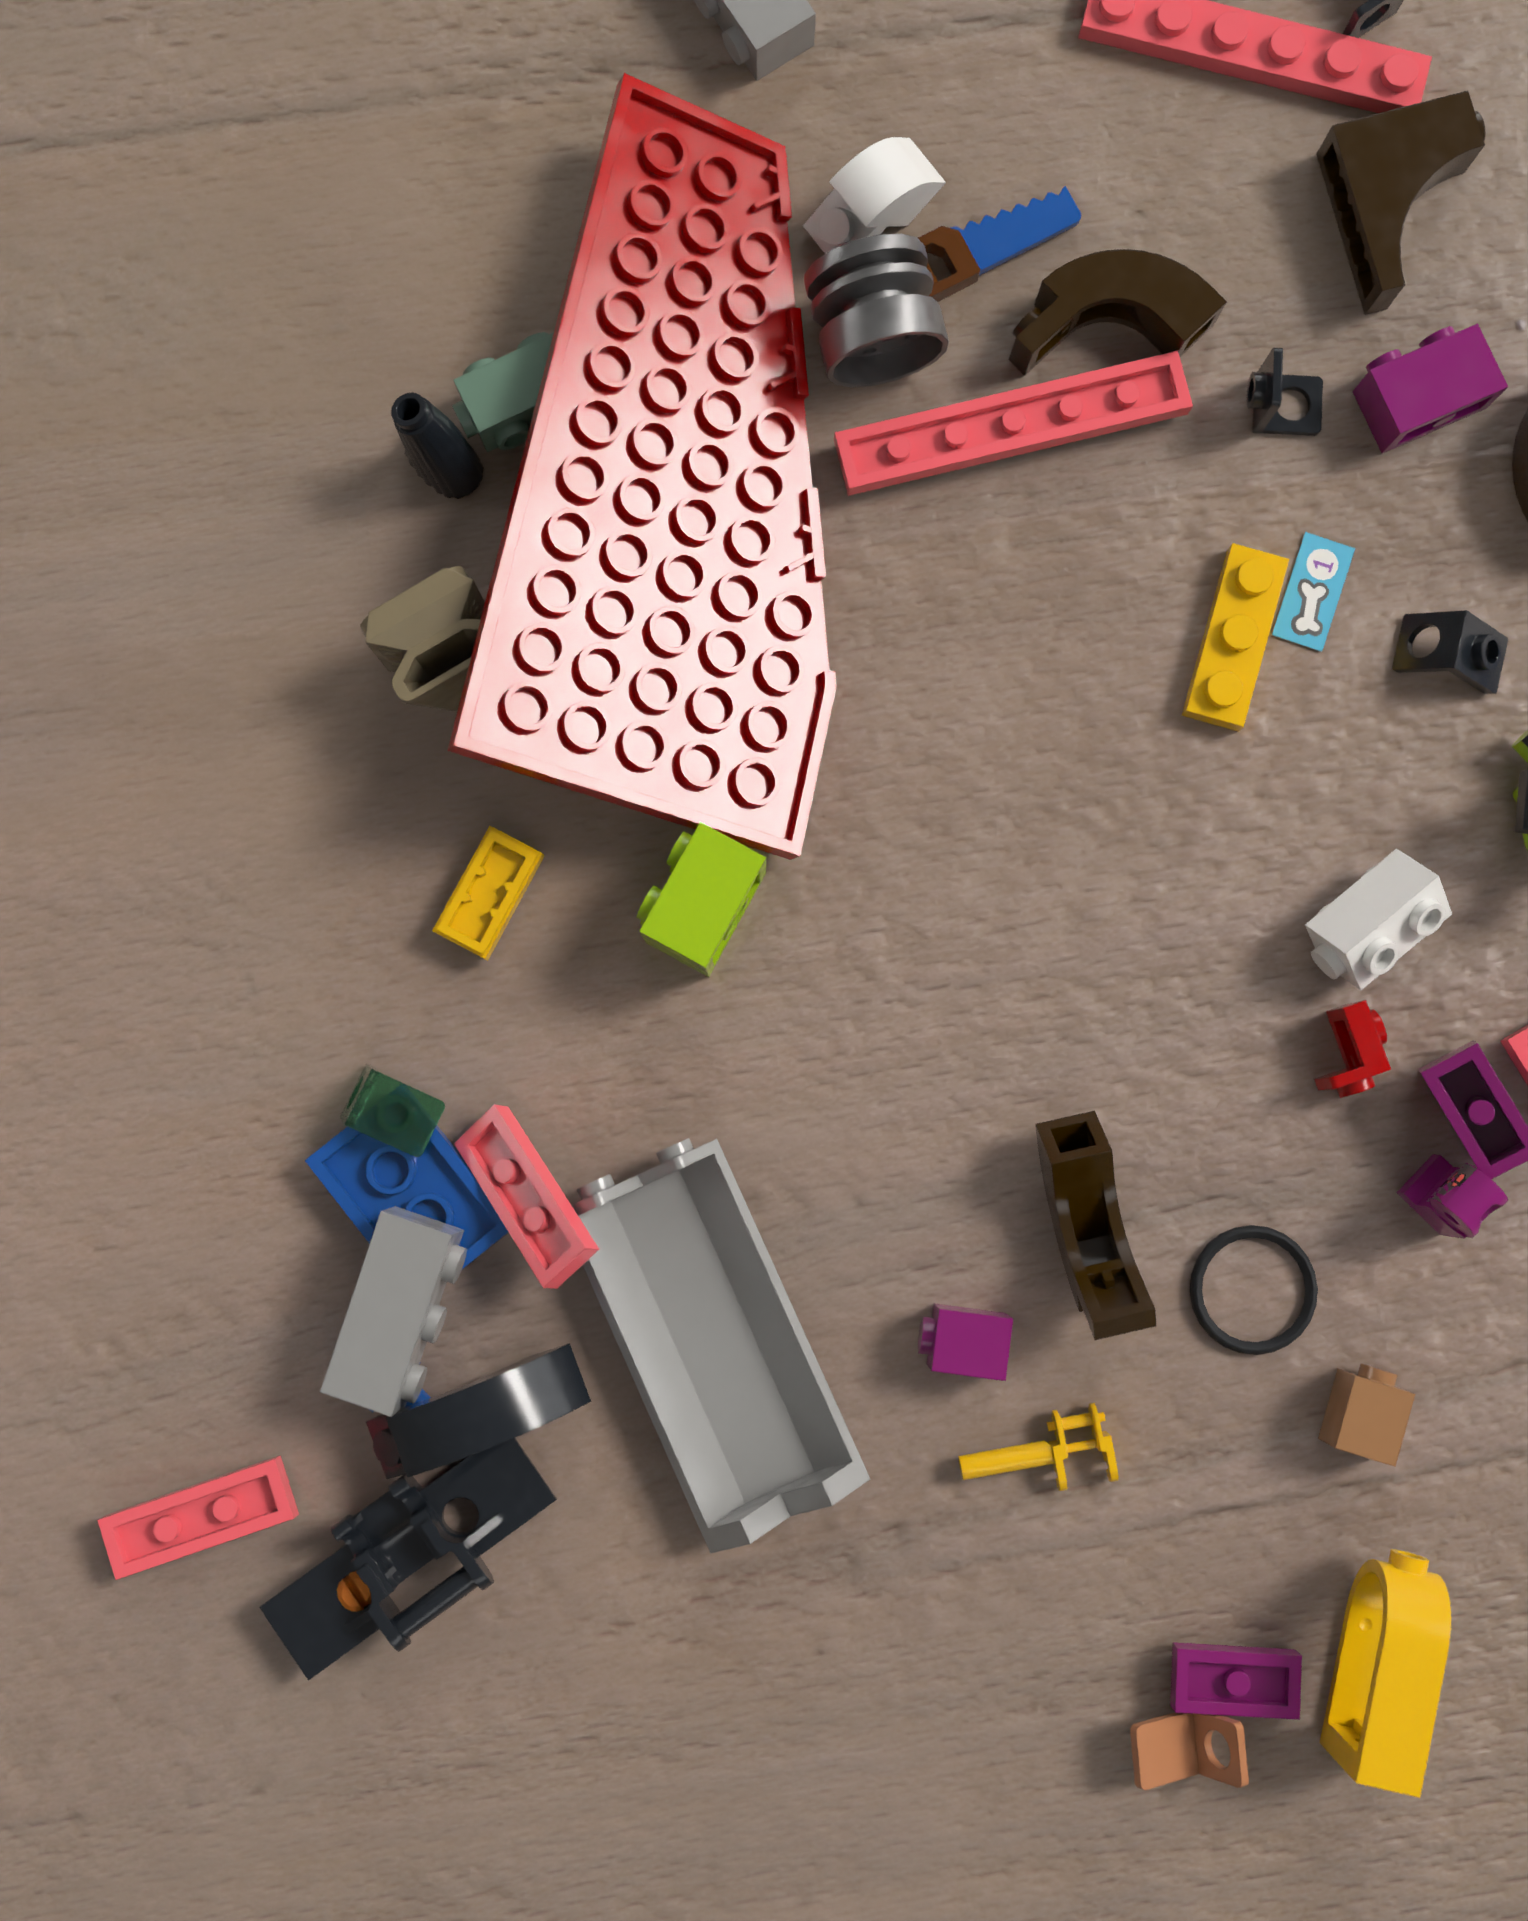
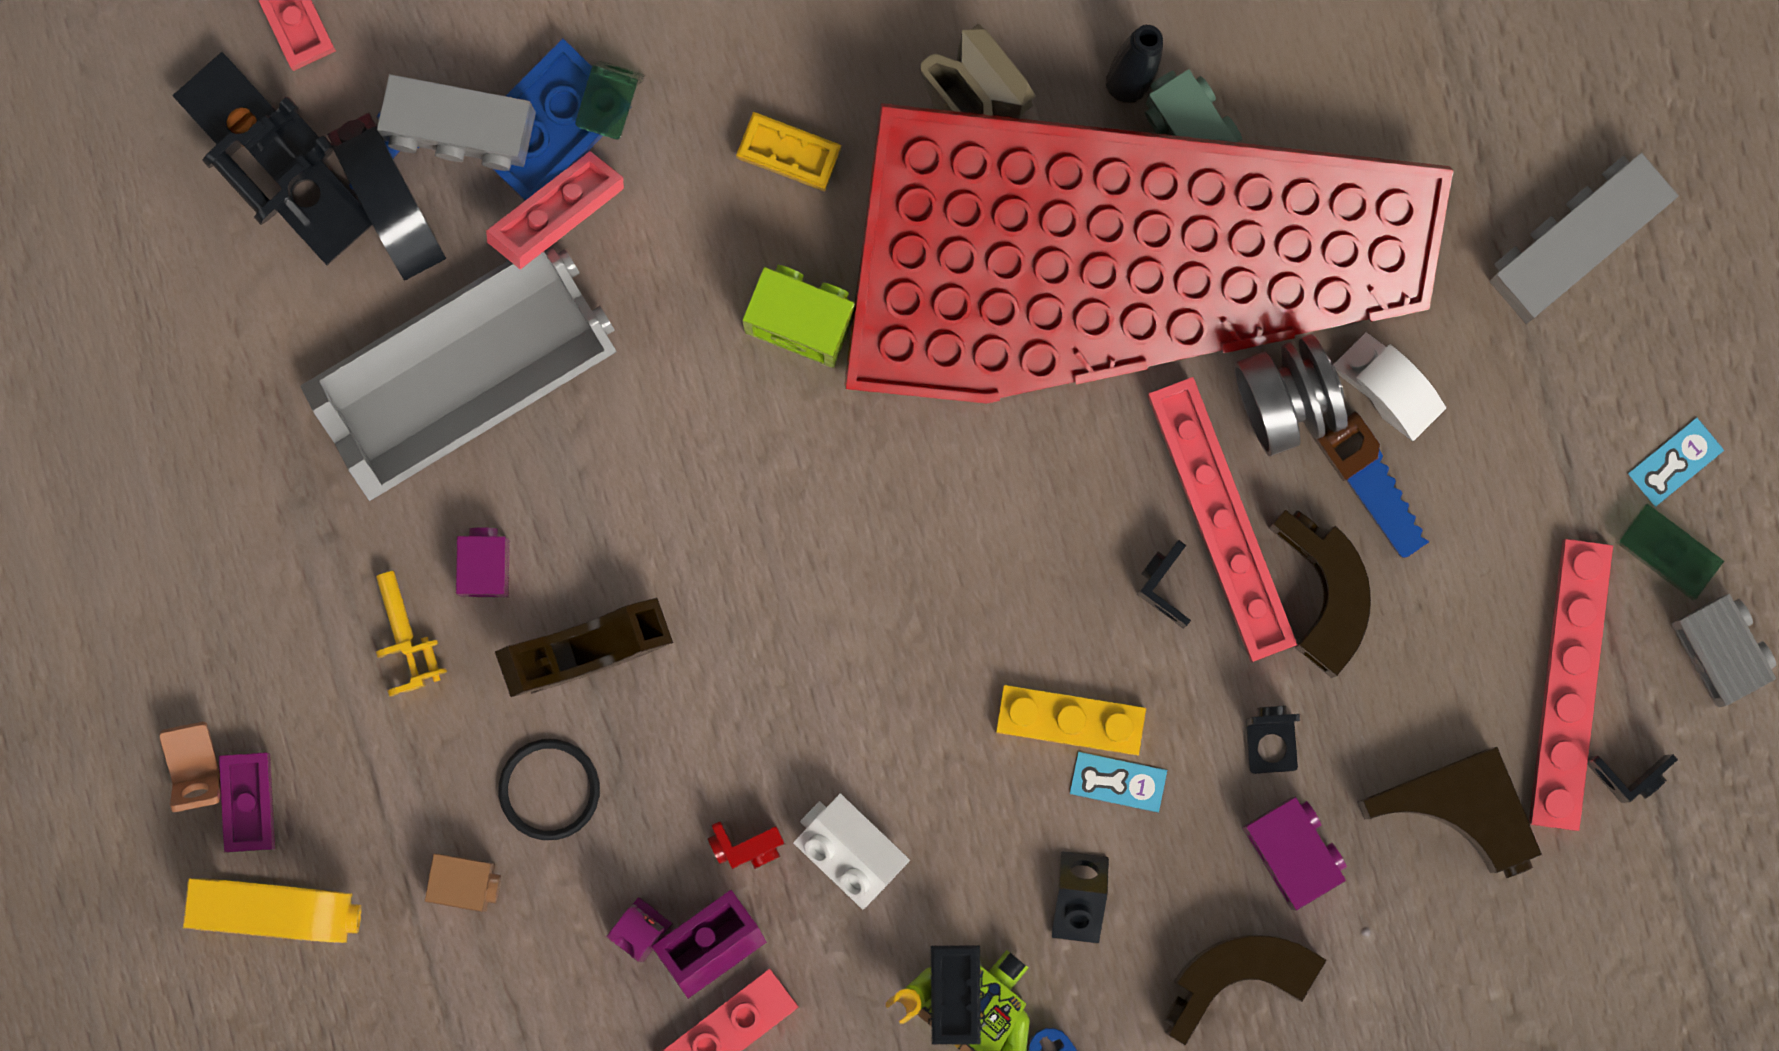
camera: 80 degrees right, 0 degrees up
(1071, 508) = (1154, 573): none -> black bracket

